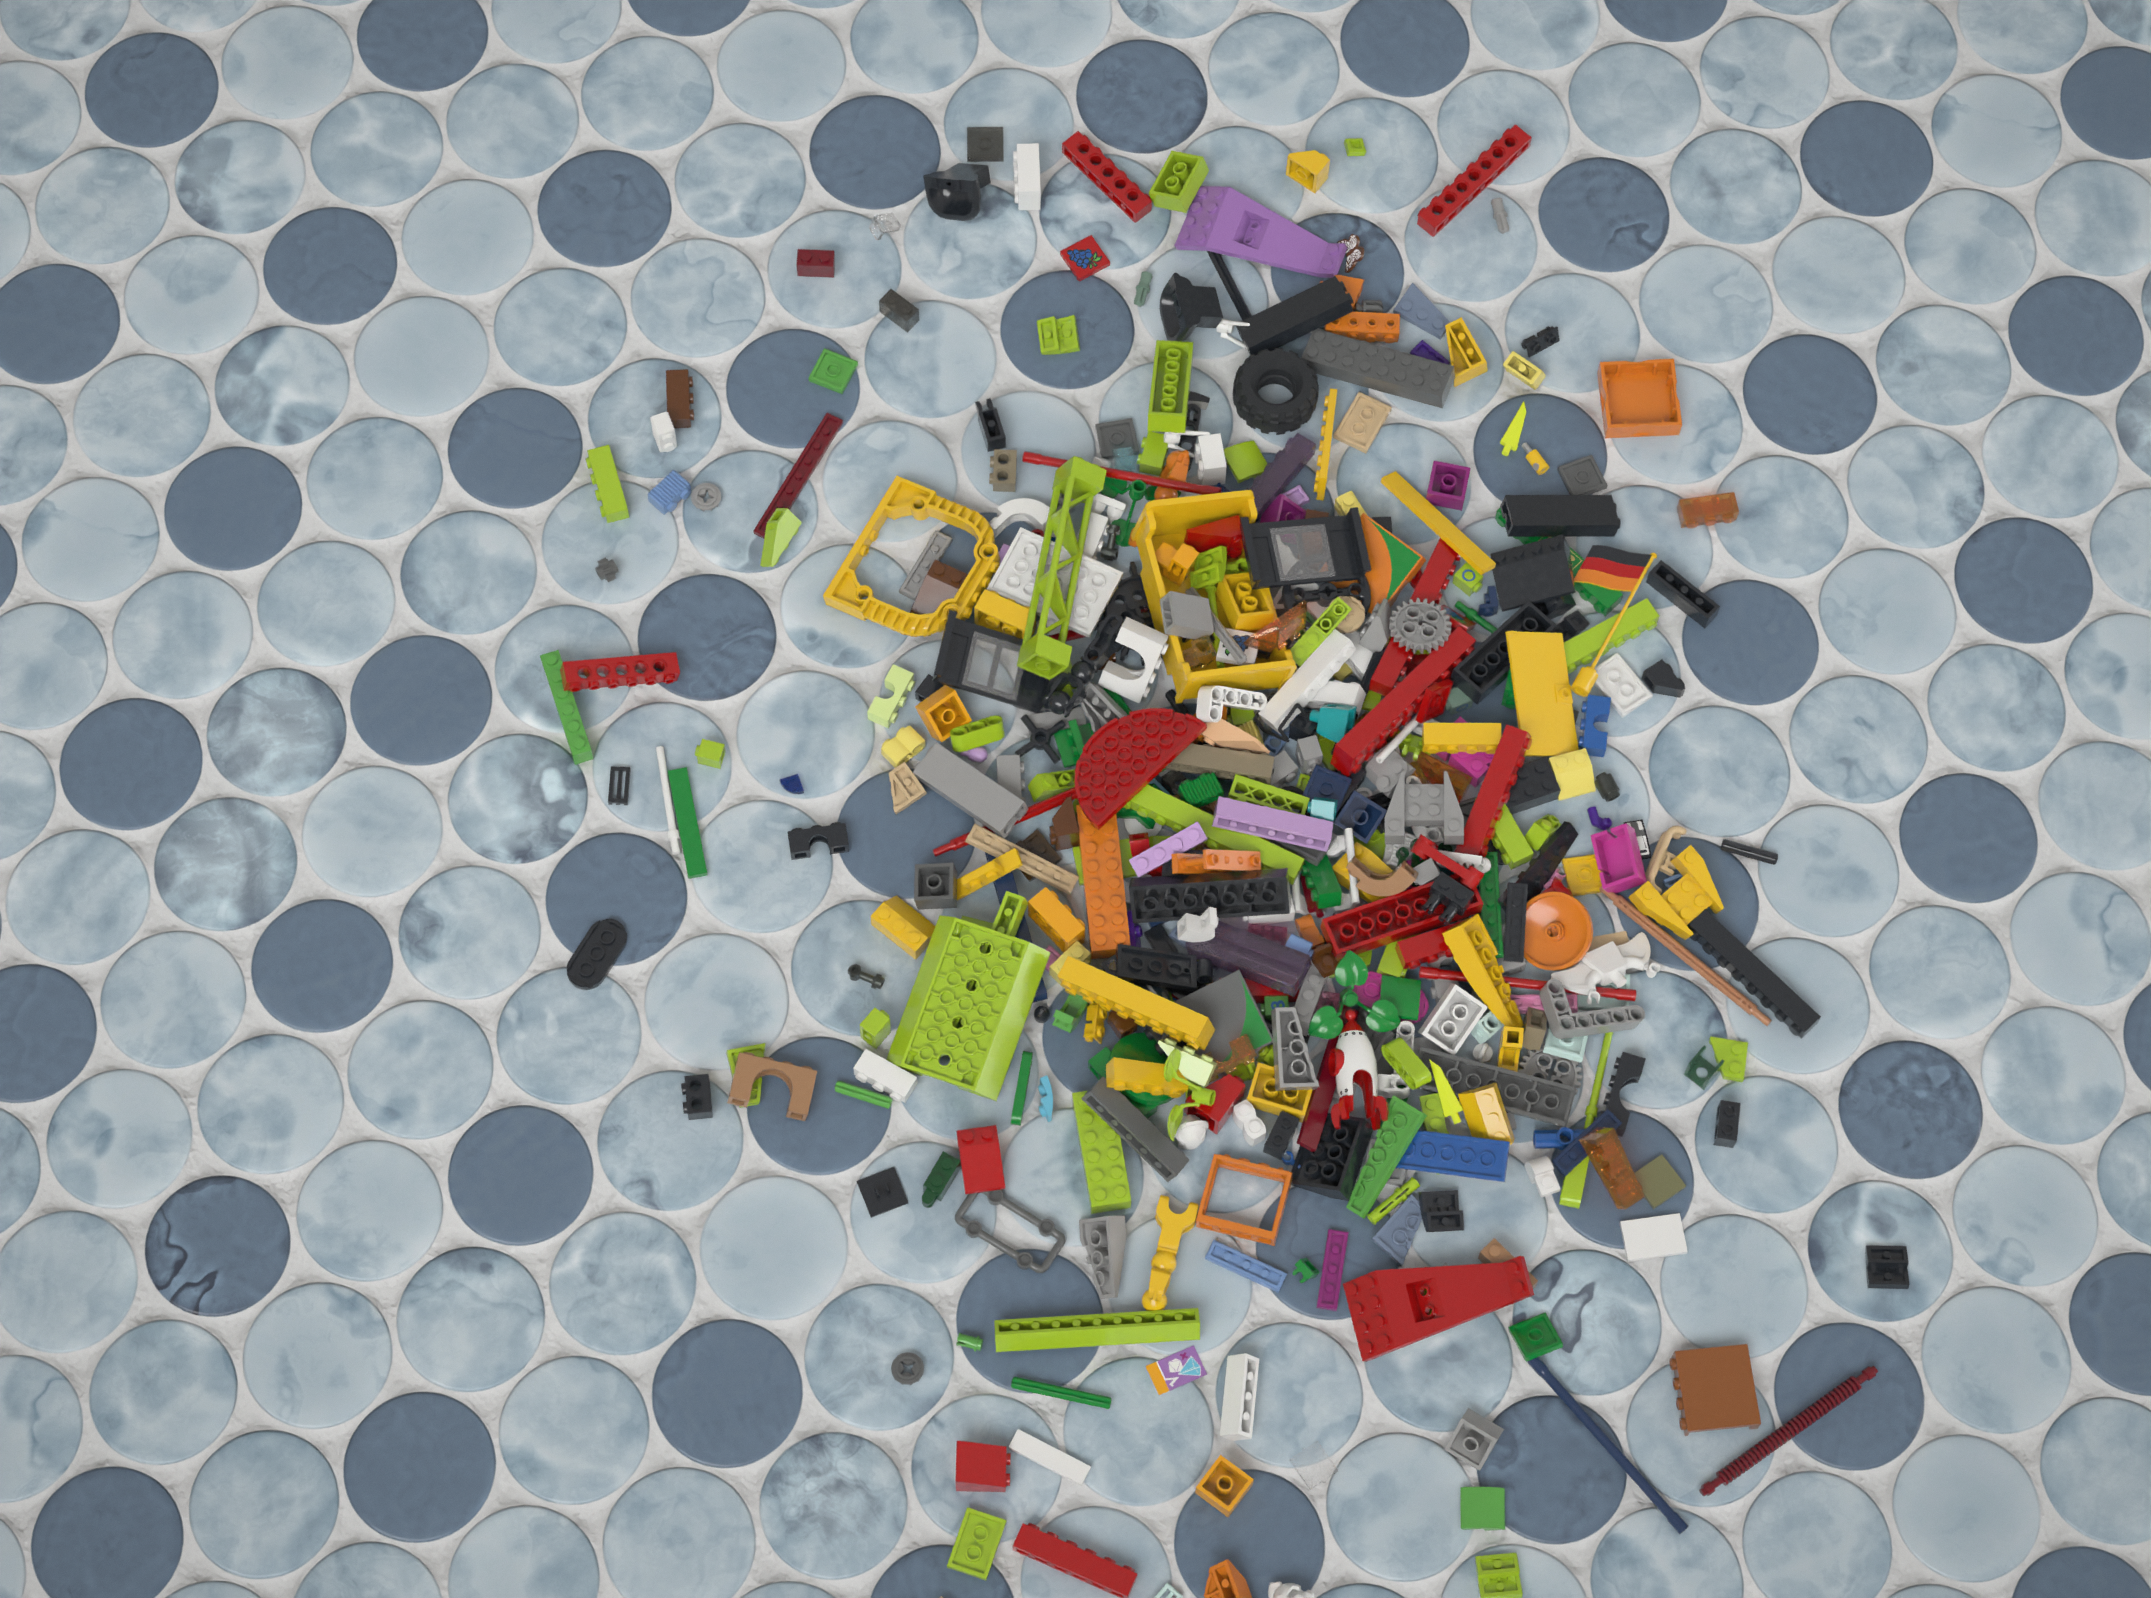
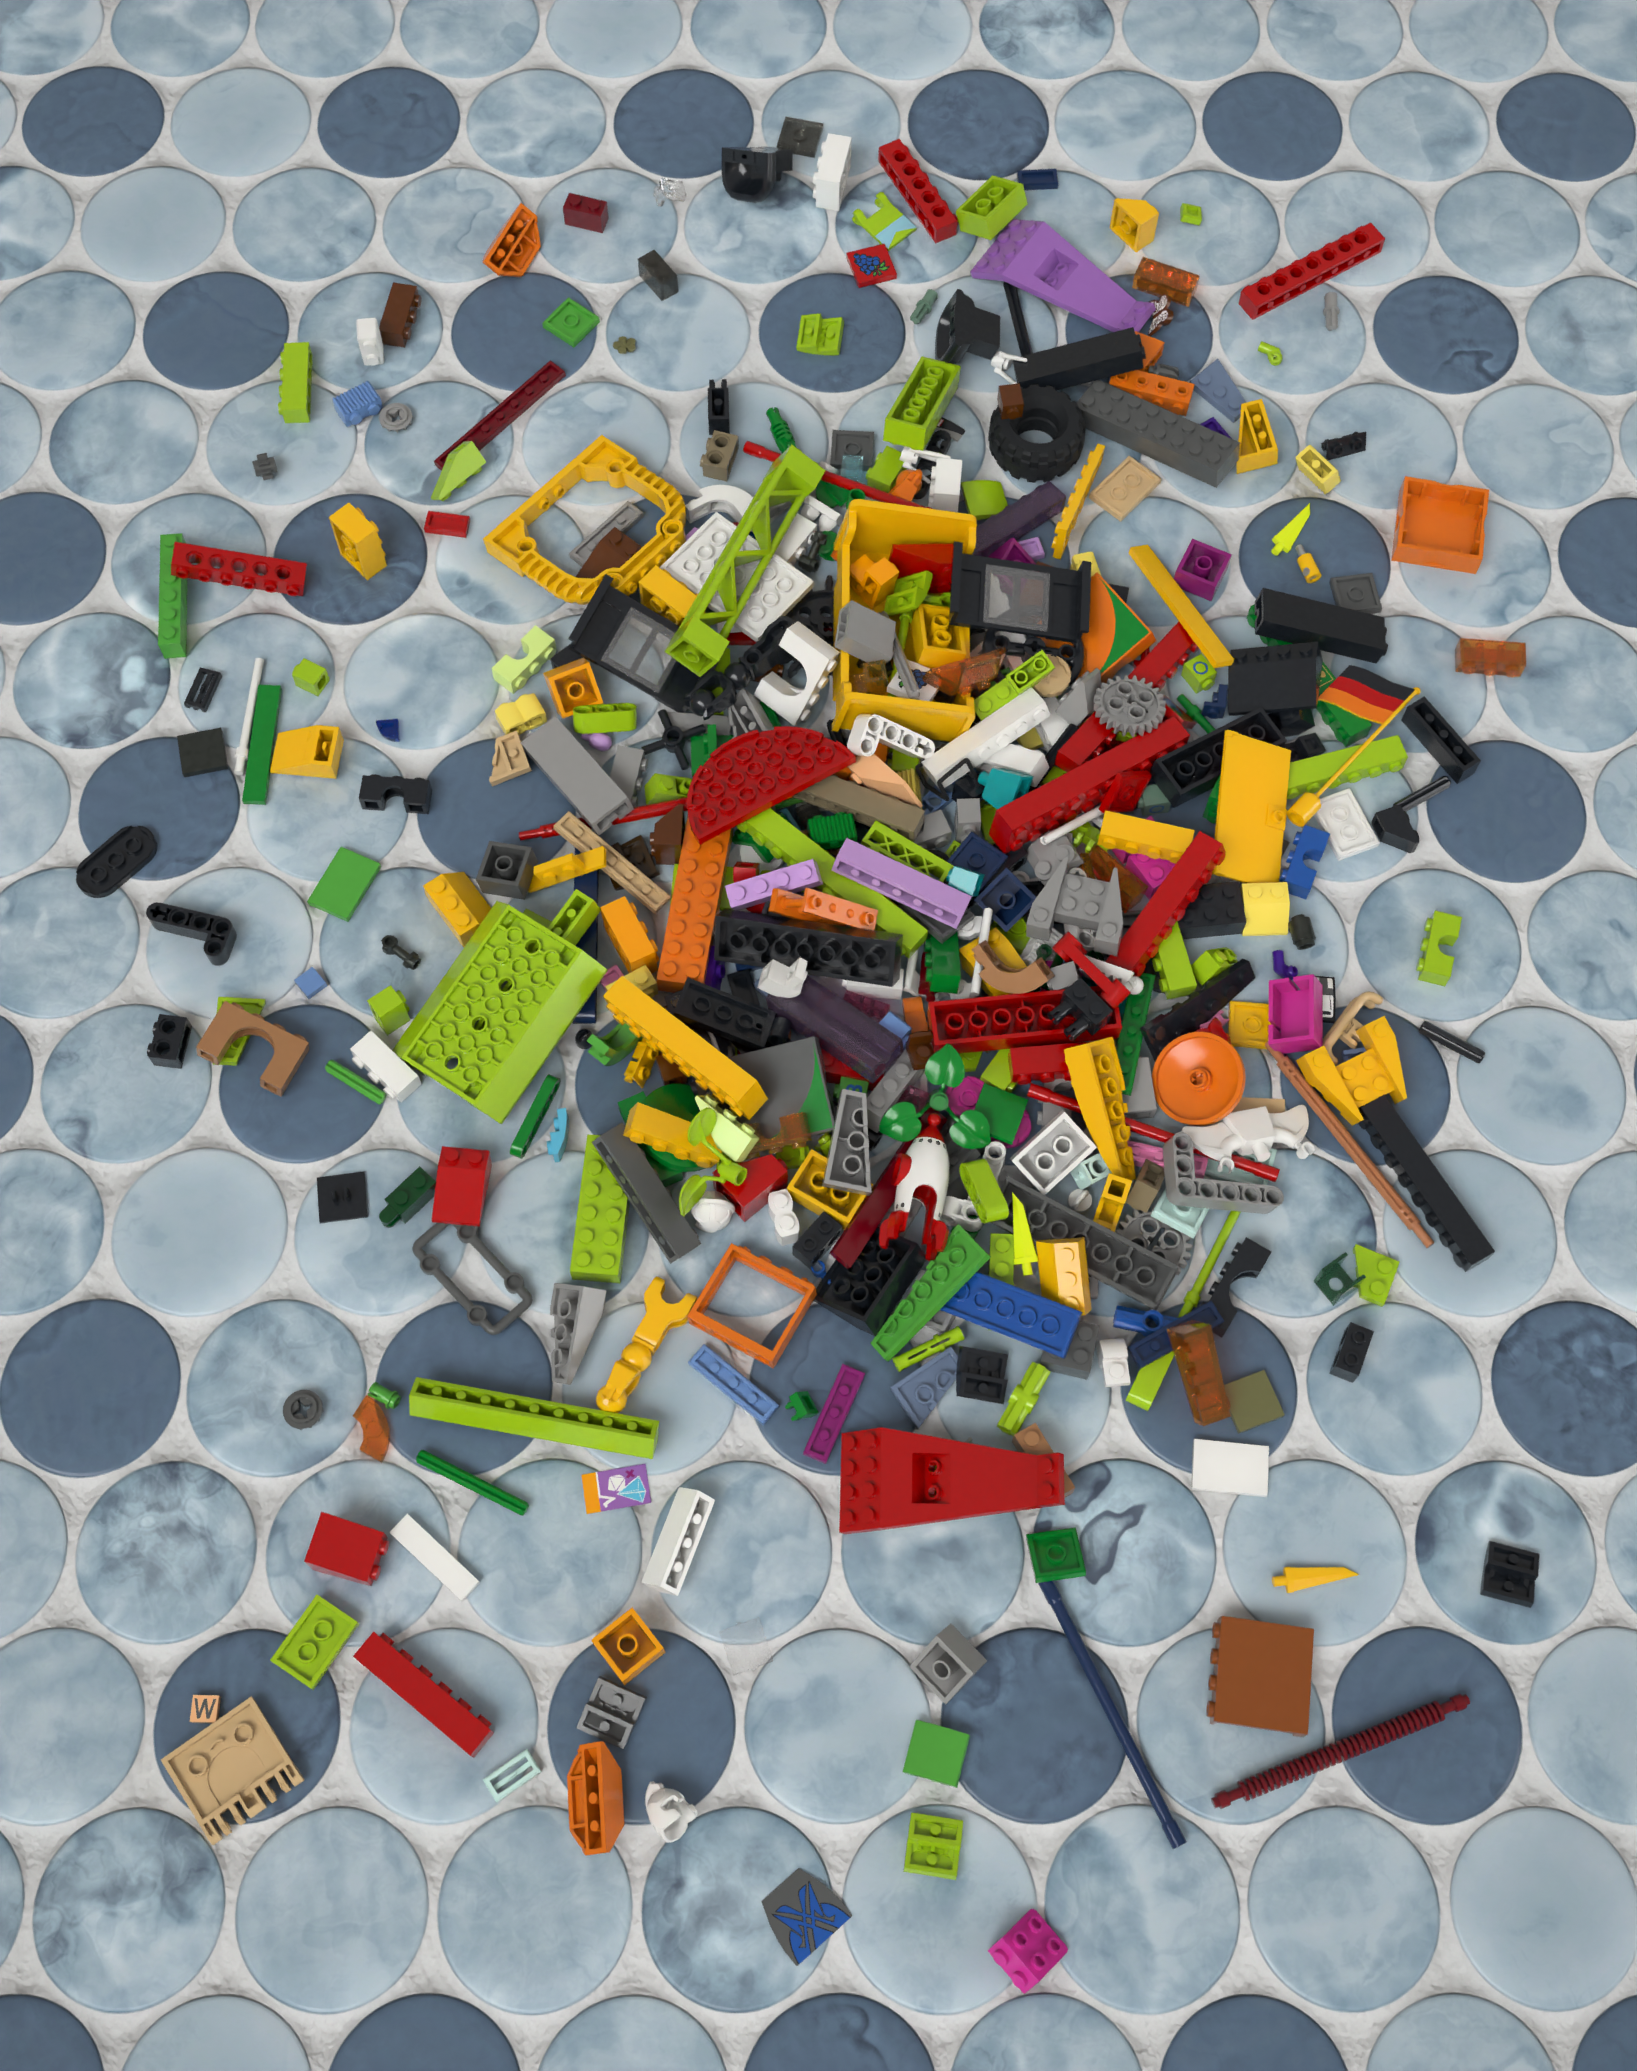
camera: 15 degrees right, 0 degrees up
(638, 841) = (202, 752): none -> pearl dark grey tile
(682, 998) = (165, 919): none -> black beam
(717, 623) = (358, 540): none -> yellow brick
(730, 821) = (308, 752): none -> yellow slope
(760, 308) = (514, 244): none -> orange wedge
(782, 586) = (447, 524): none -> red tile
(798, 929) = (344, 884): none -> bright green tile
(798, 1020) = (310, 983): none -> medium blue tile
(887, 382) = (624, 345): none -> olive plant
(969, 1369) = (375, 1429): none -> clear orange tile
(1051, 437) = (780, 430): none -> green hinge
(1087, 215) = (886, 225): none -> lime flag
(1209, 141) = (1038, 179): none -> dark blue tile
(1224, 1539) = (611, 1712): none -> dark grey slope
(1249, 372) = (1010, 401): none -> reddish brown brick
(1349, 218) = (1162, 279): none -> clear orange brick
(1458, 265) = (1272, 352): none -> lime arm
(1479, 1222) = (1023, 1399): none -> lime piece
(1515, 922) = (1155, 1058): black tile -> none
(1515, 1181) = (1079, 1355): none -> dark grey brick
(1679, 643) = (1424, 793): none -> black axle
(1720, 791) = (1434, 965): none -> lime arch
(1730, 1308) = (1305, 1577): none -> yellow bar

